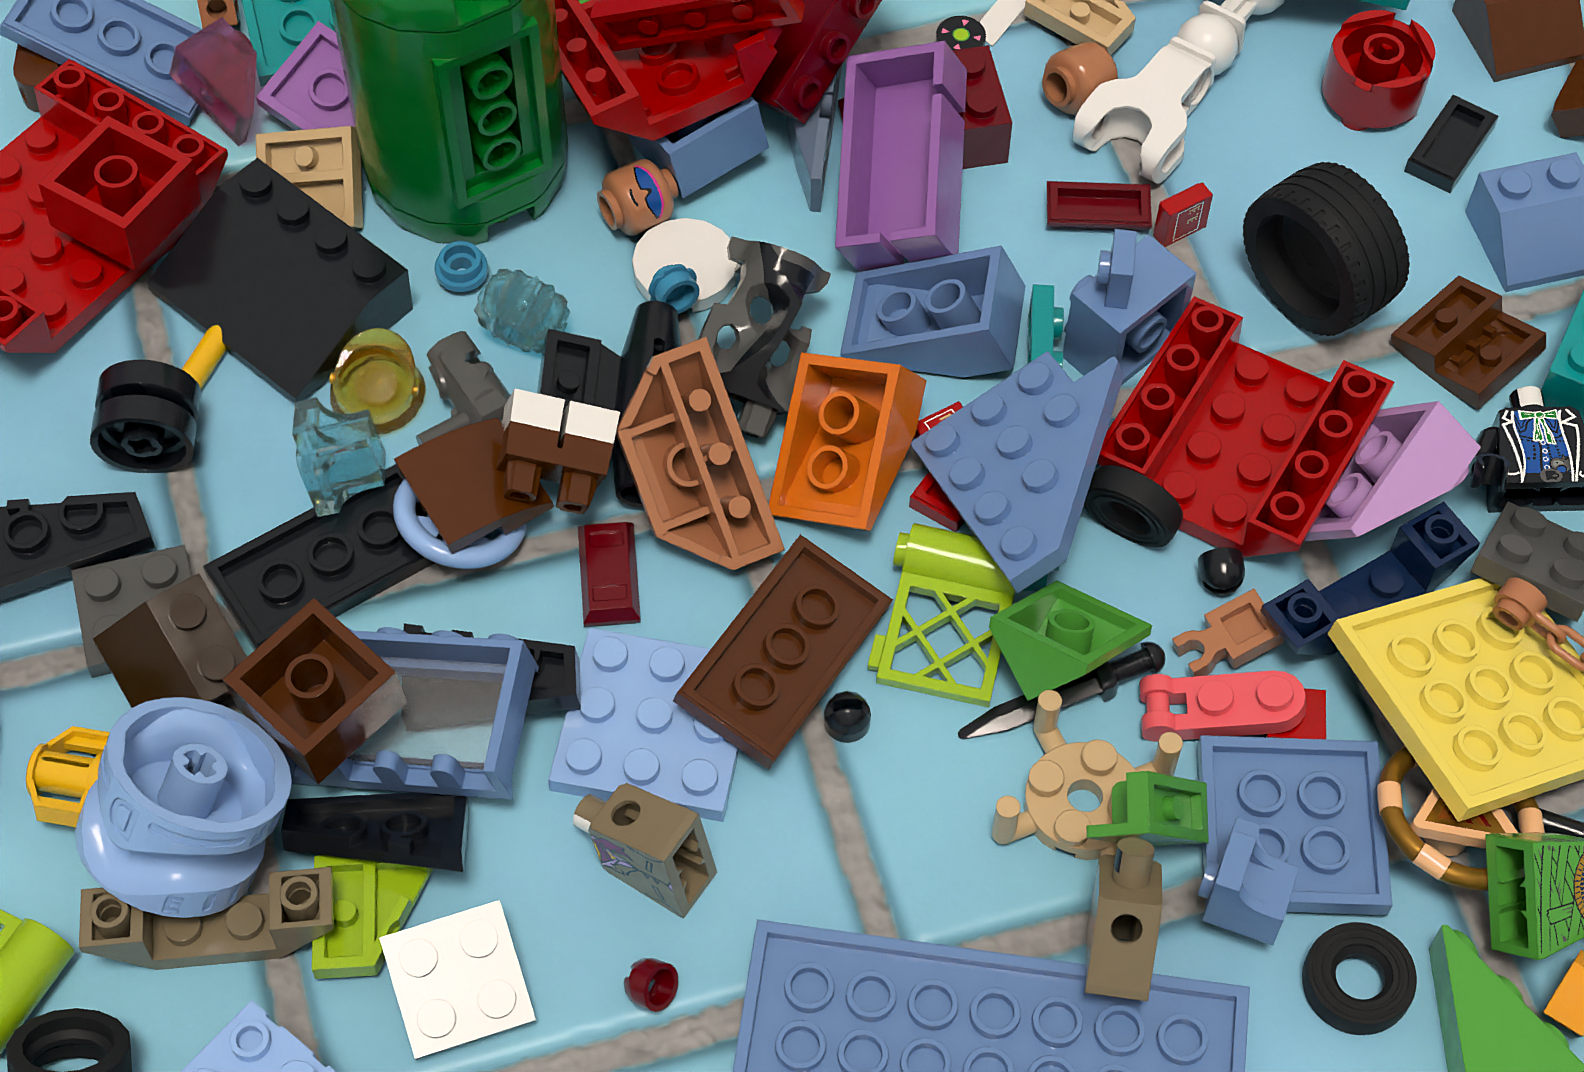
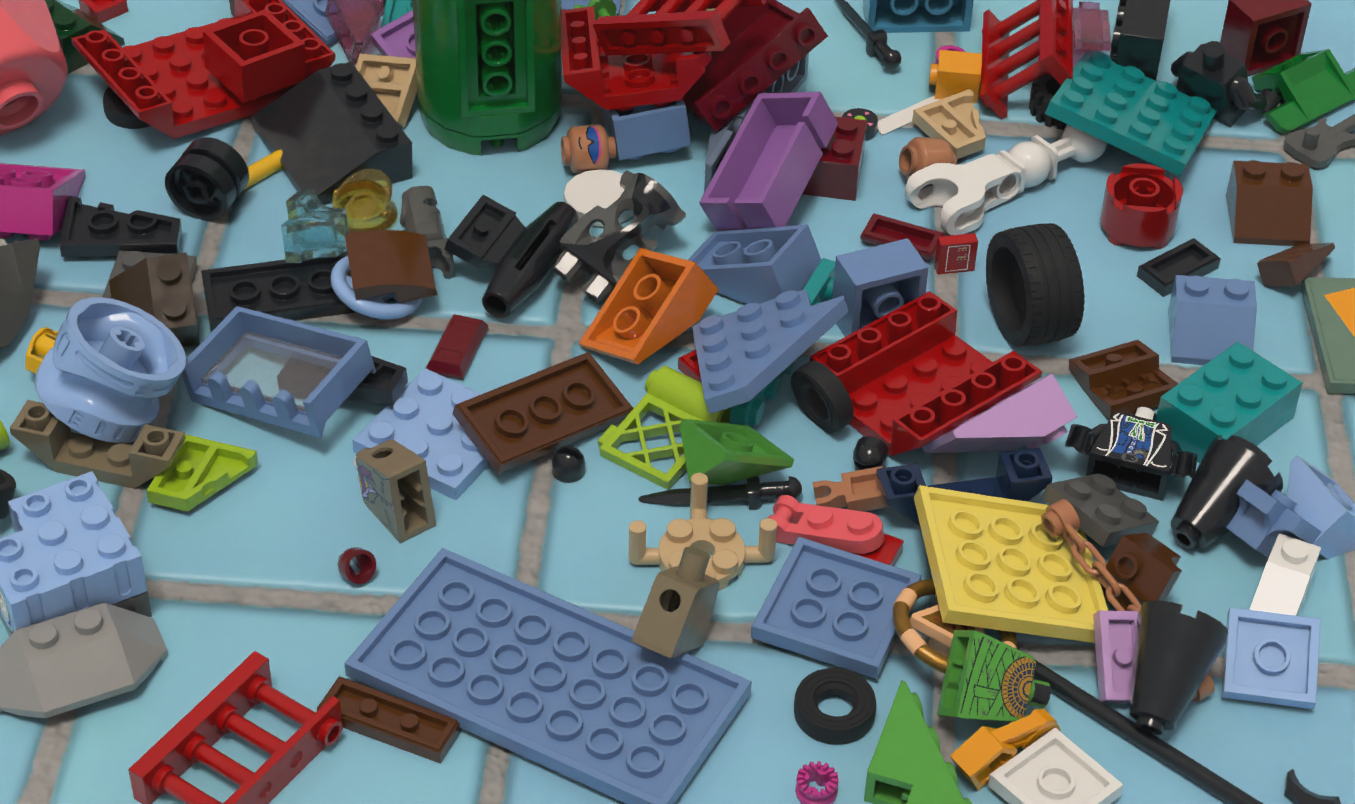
camera: 20 degrees right, 15 degrees down
(316, 690) = (222, 329): reddish brown brick -> none
(381, 828) = (231, 430): black wing -> none
(457, 979) = (233, 523): white plate -> none
(461, 256) = (453, 159): dark azure plate -> none
(521, 309) = (471, 179): clear light blue gear -> none
(556, 447) = (448, 253): reddish brown hips -> none
(675, 286) = (582, 190): dark azure plate -> none
(695, 461) = (536, 286): nougat wedge -> none
(1117, 268) = (869, 244): medium blue plate -> none
(1156, 809) = (739, 557): bright green panel -> none
(1248, 887) = (774, 615): medium blue brick -> none

